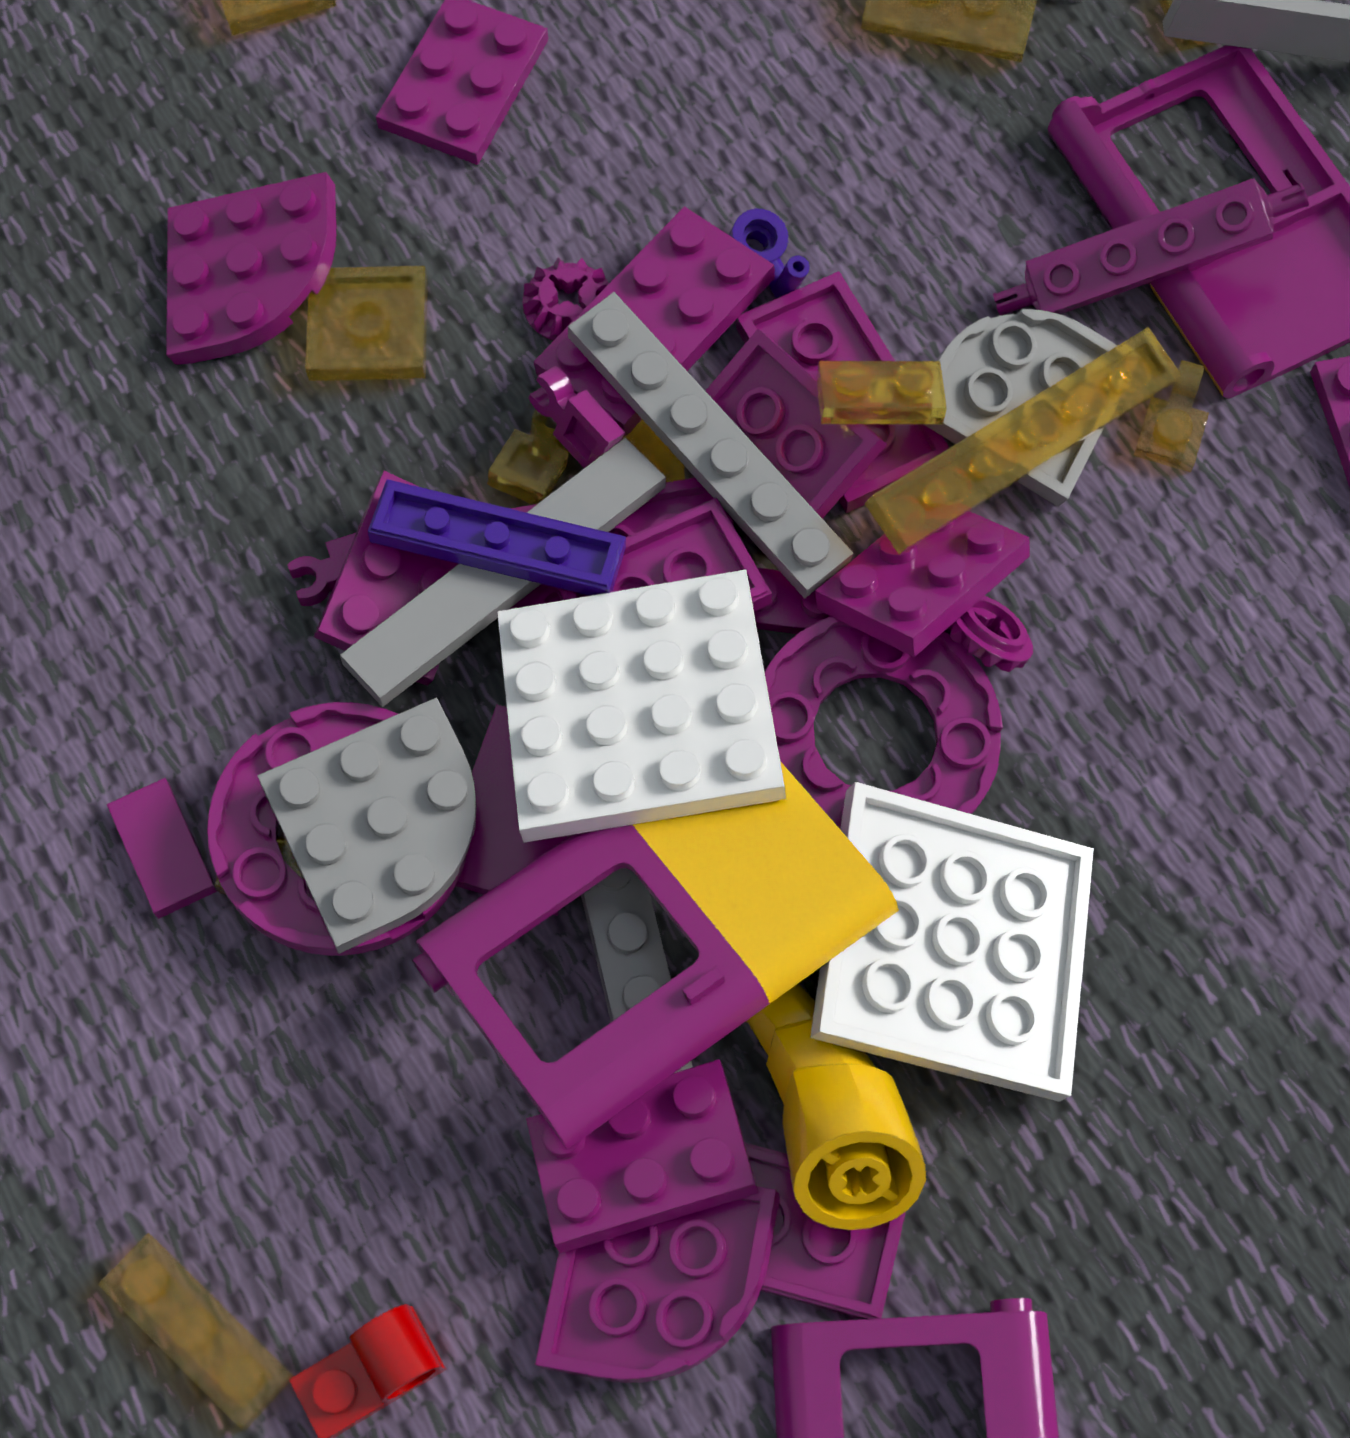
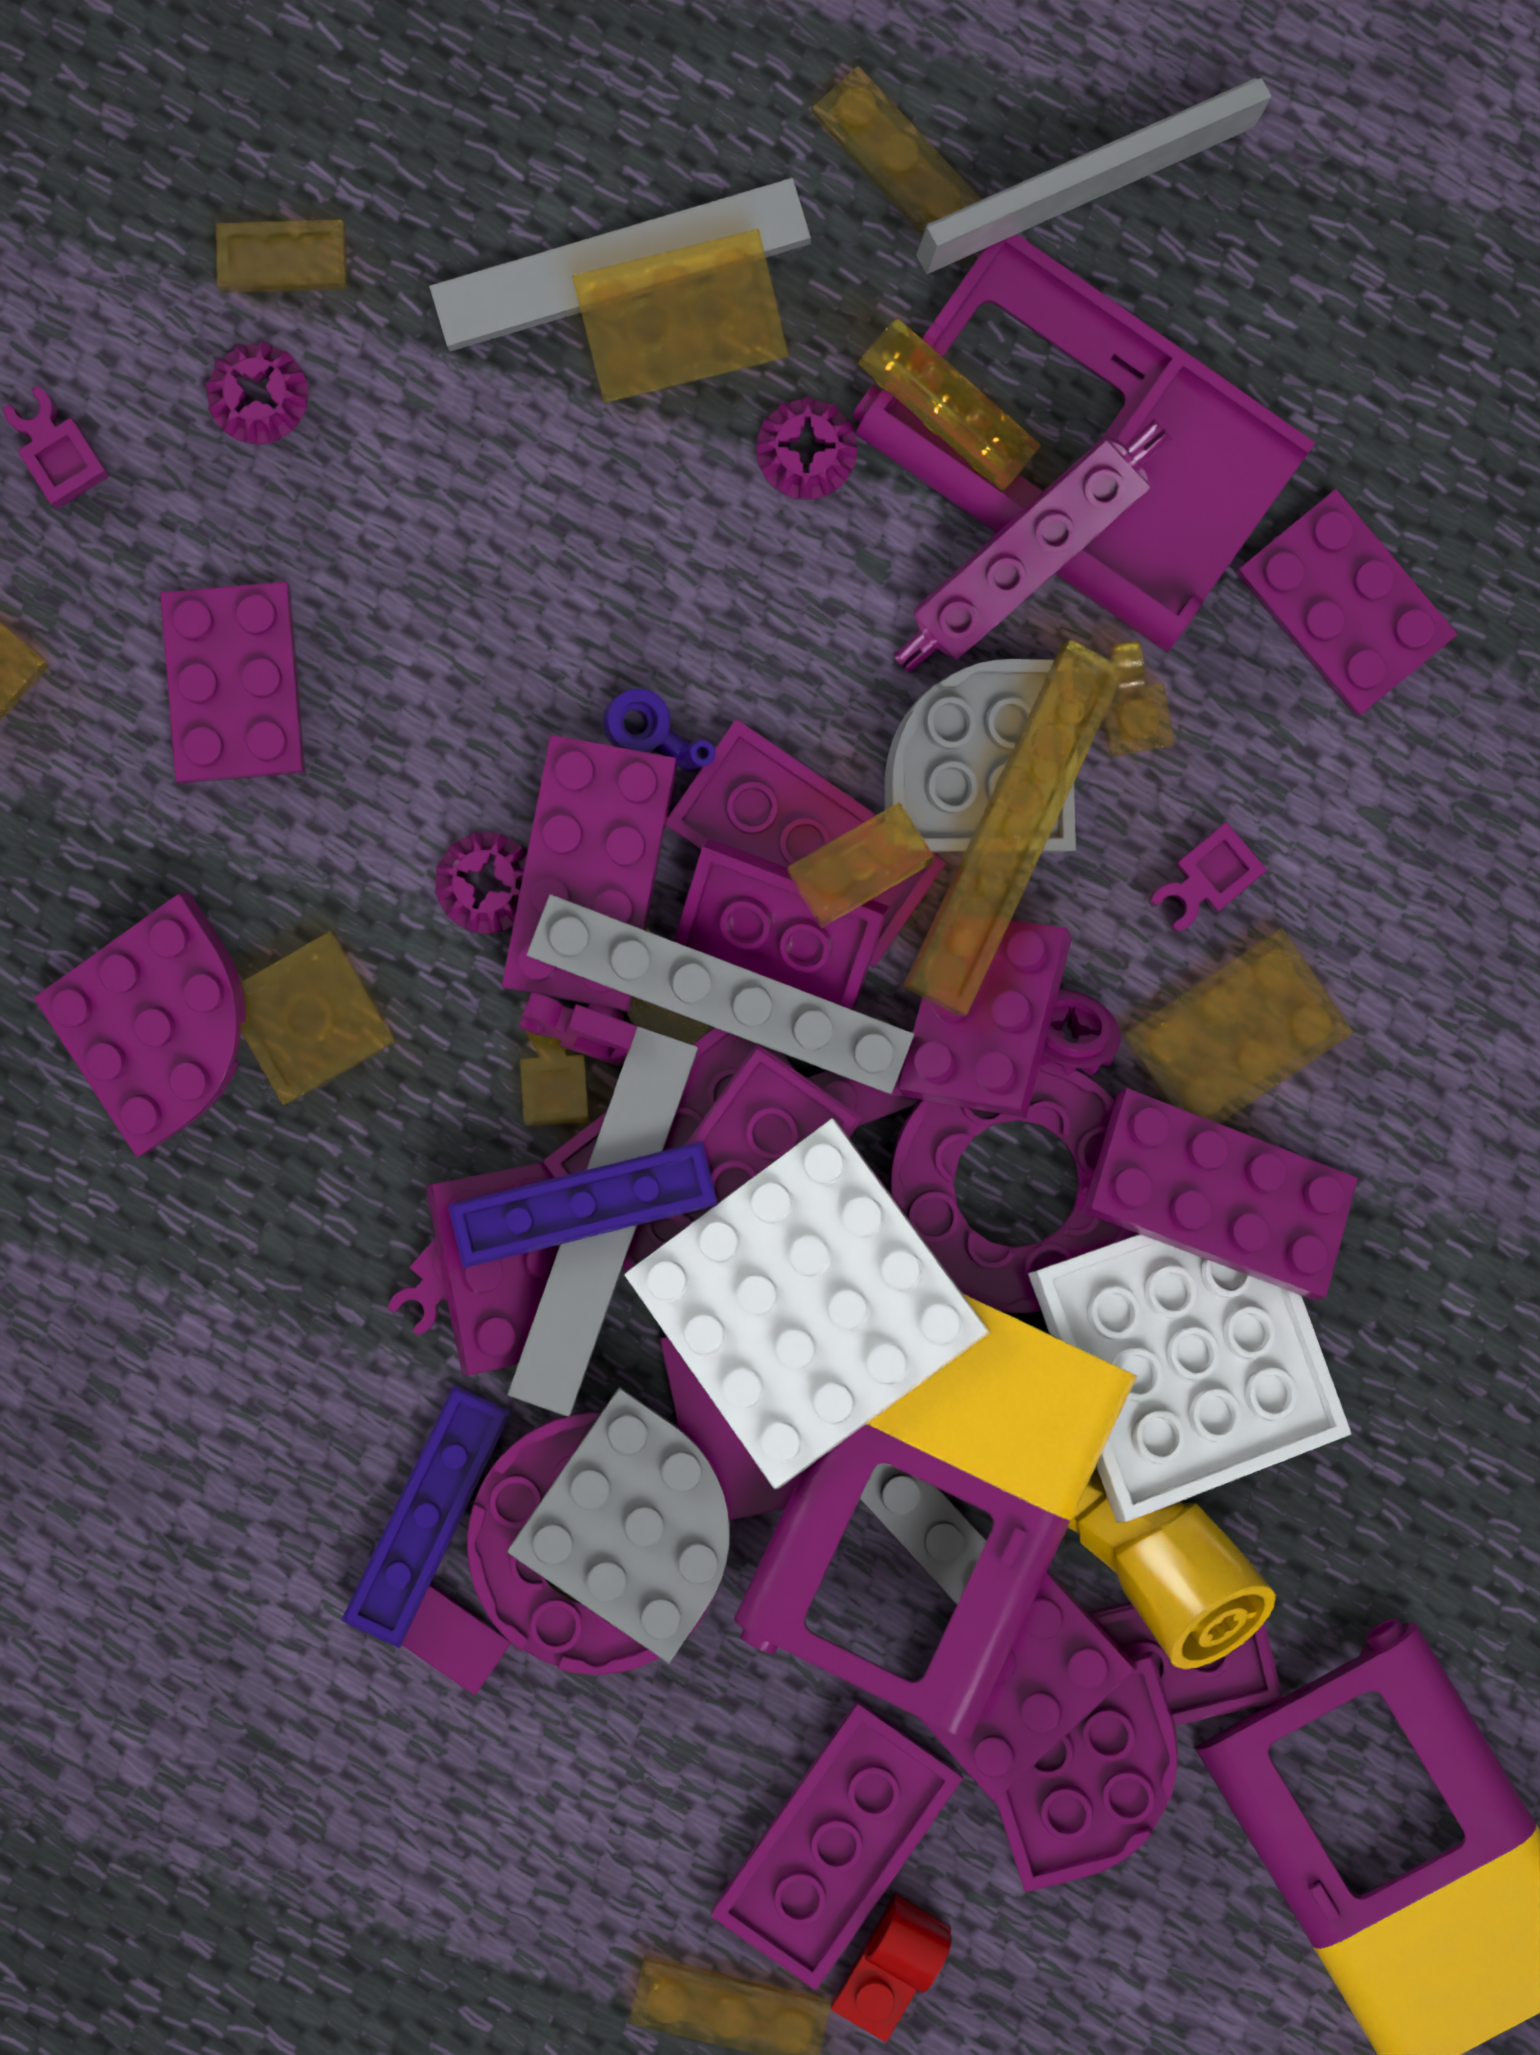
camera: 30 degrees left, 20 degrees up
(202, 745) = (426, 1516): none -> dark purple tile
(385, 1223) = (836, 1844): none -> magenta plate
(1013, 144) = (783, 467): none -> magenta gear
(1054, 823) = (1220, 1194): none -> magenta plate
(1134, 129) = (949, 404): none -> clear yellow plate
(1135, 716) = (1238, 1031): none -> clear yellow plate
(1178, 573) = (1214, 873): none -> magenta plate

